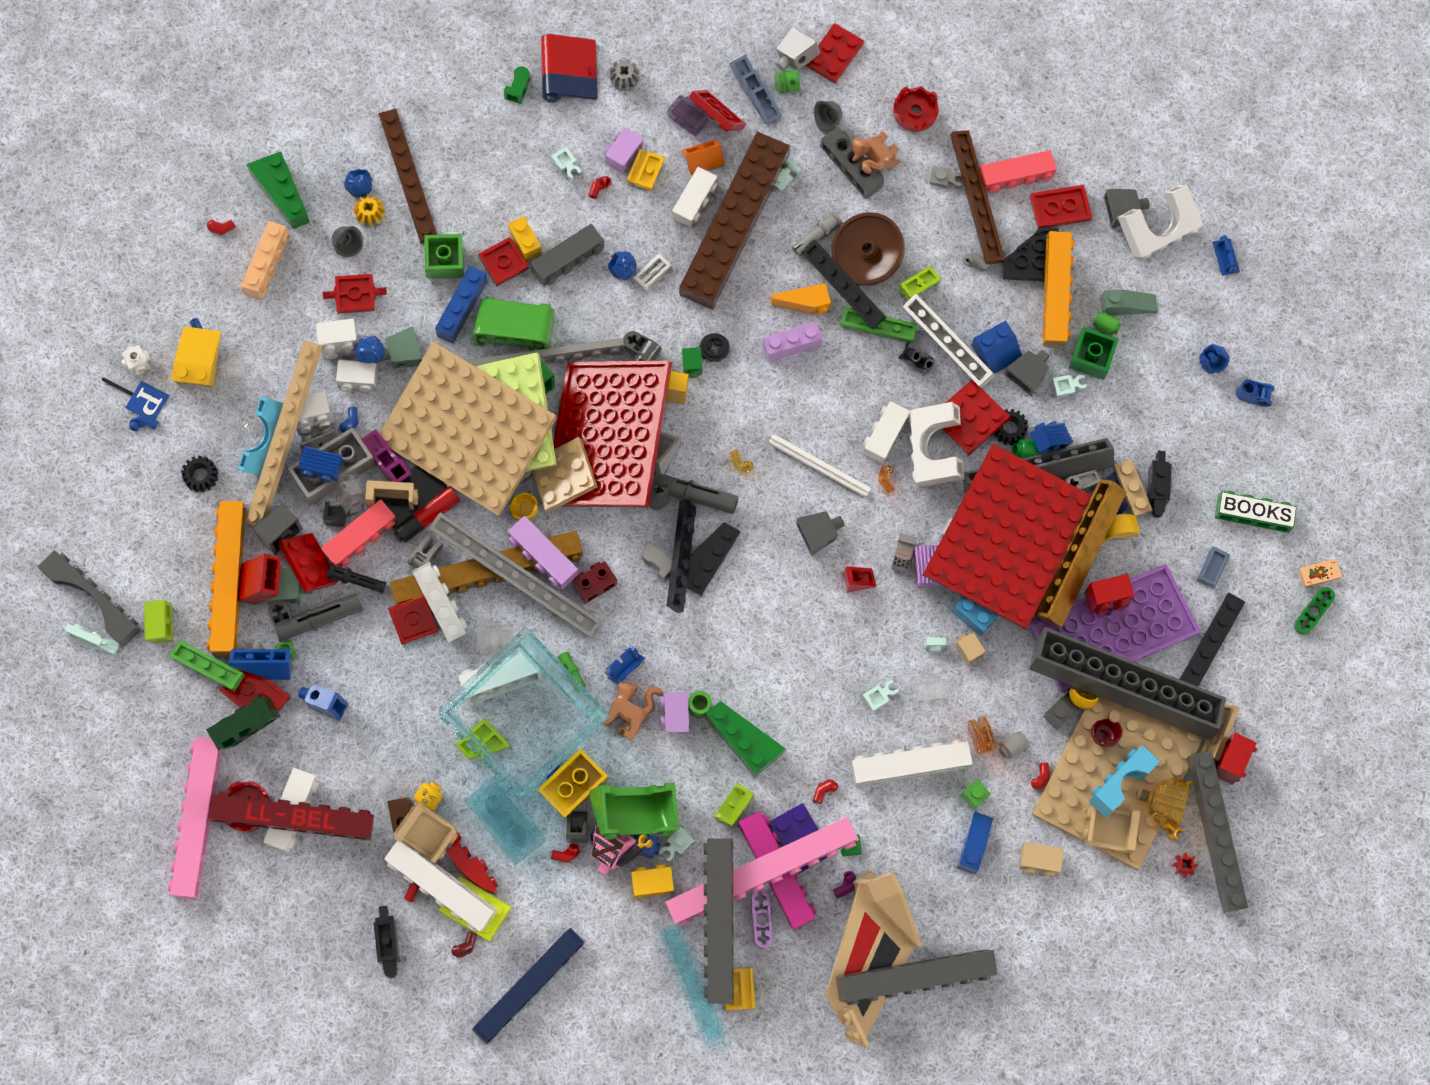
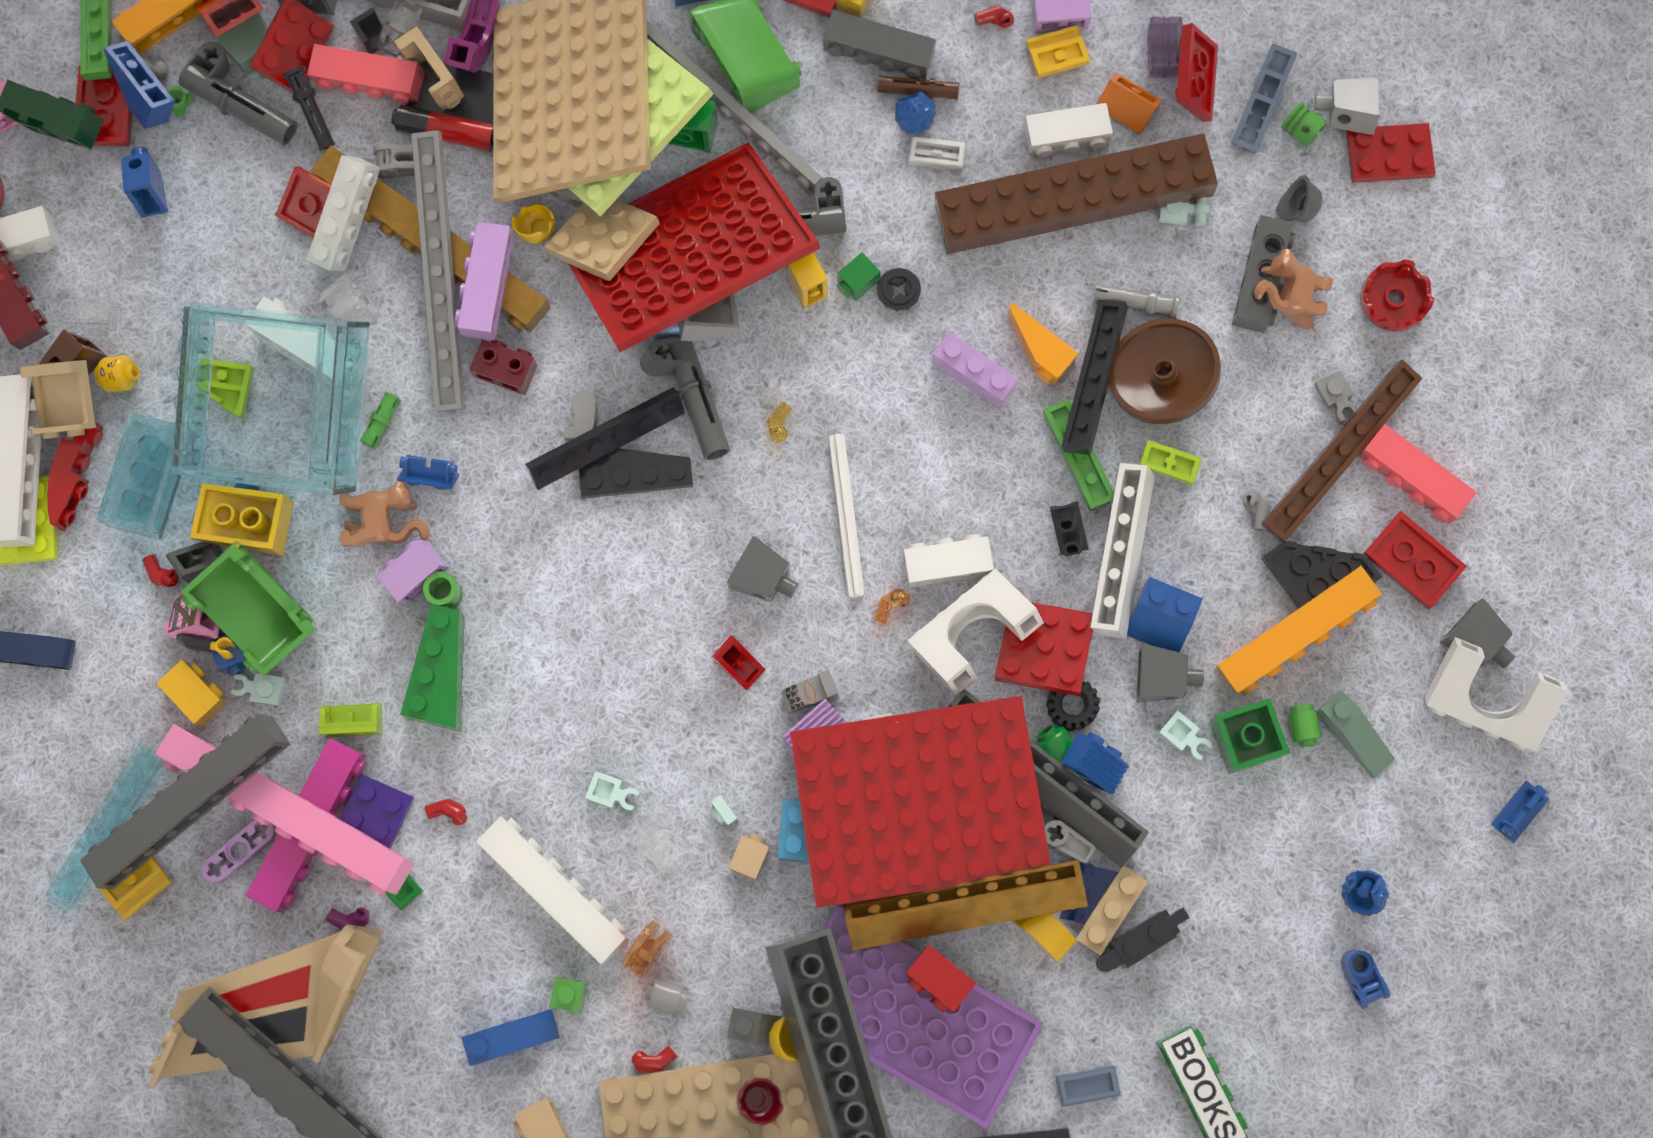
camera: 60 degrees right, 5 degrees up
(605, 255) = (908, 86): none -> reddish brown pin

